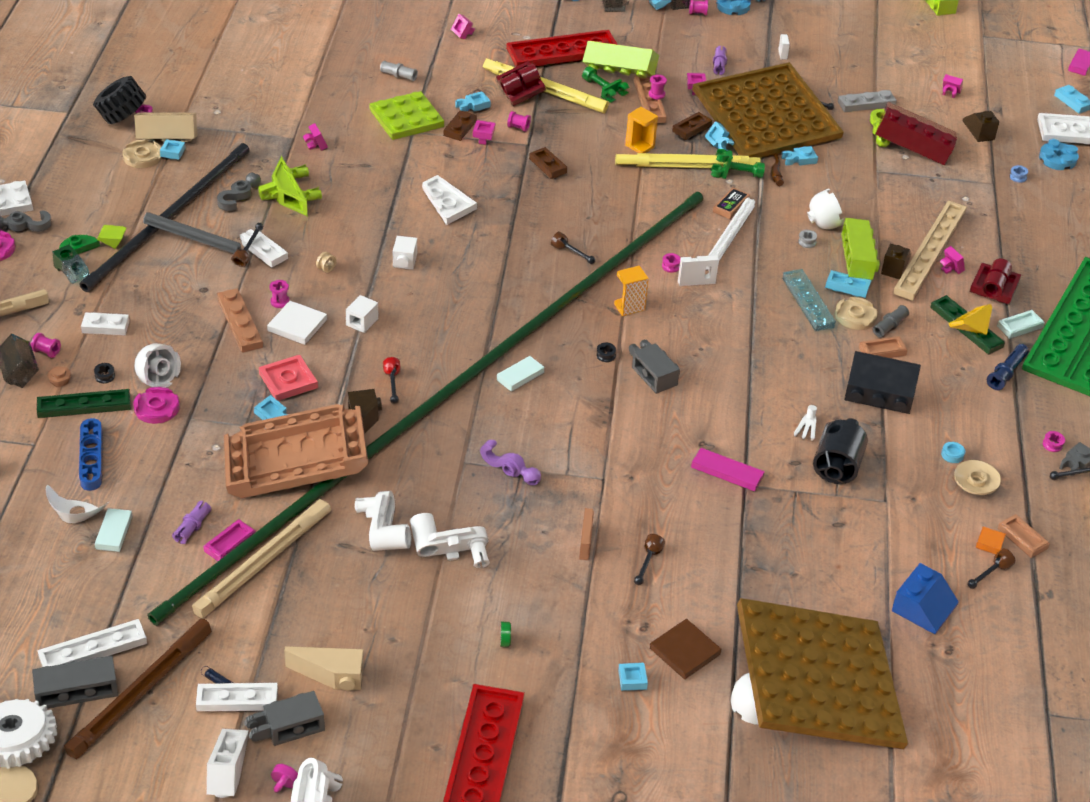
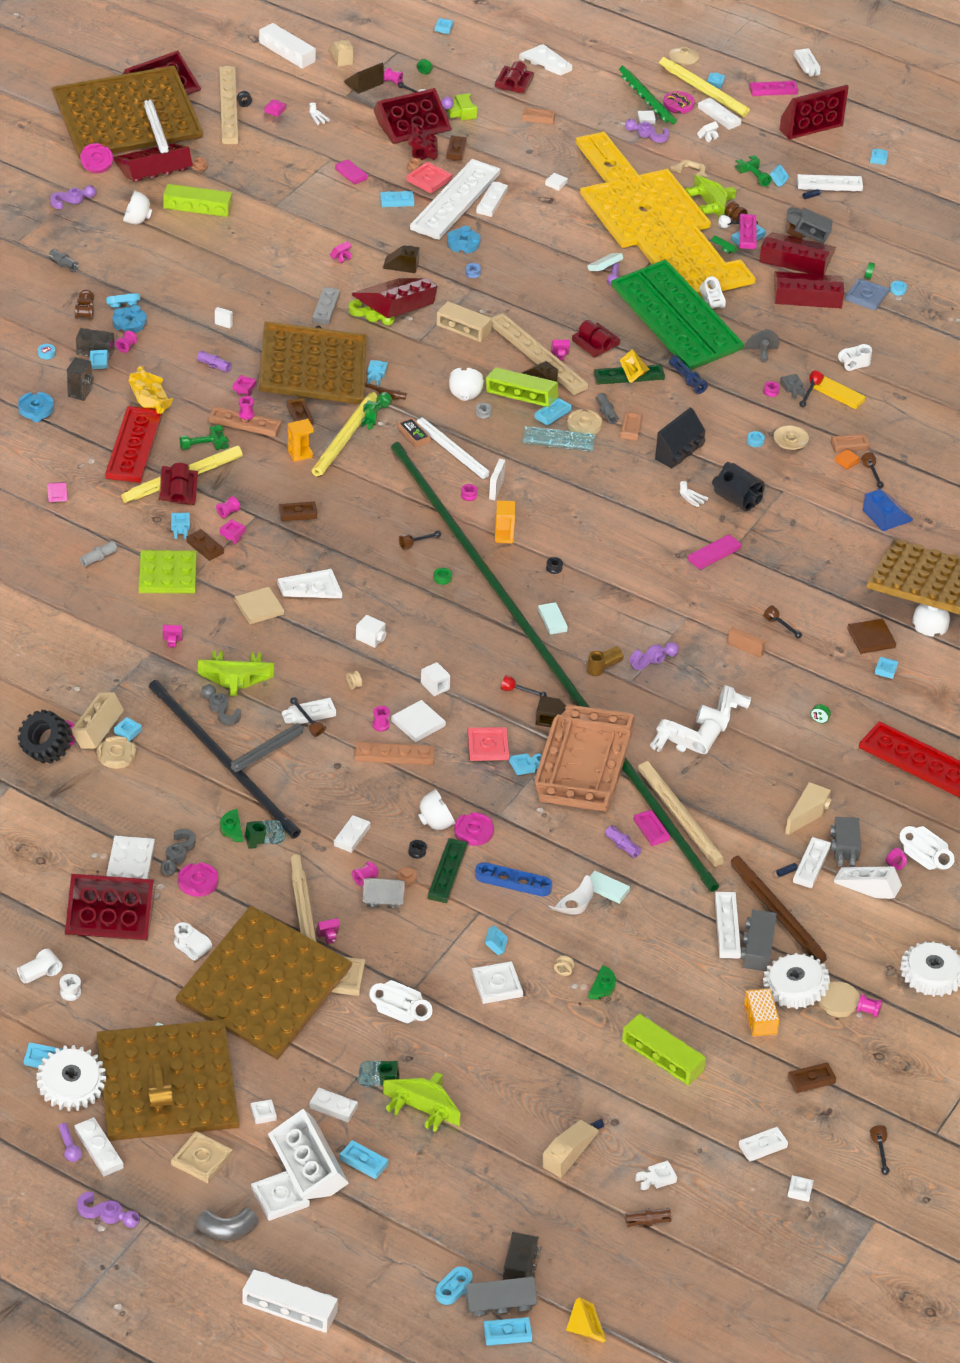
camera: 65 degrees left, 0 degrees up
(111, 235) = (236, 797): lime slope -> none
(398, 178) = (259, 605): none -> tan tile
(469, 424) = (600, 660): none -> pearl gold piece
(529, 280) = (442, 576): none -> green tile
(621, 59) = (191, 412): brick -> none
(645, 28) = (149, 390): none -> yellow plate
(654, 366) = (588, 545): dark grey hinge -> none
(718, 135) = (325, 403): medium azure plate -> none
(929, 187) = (464, 321): none -> tan brick
(1020, 324) = (644, 348): light aqua tile -> none

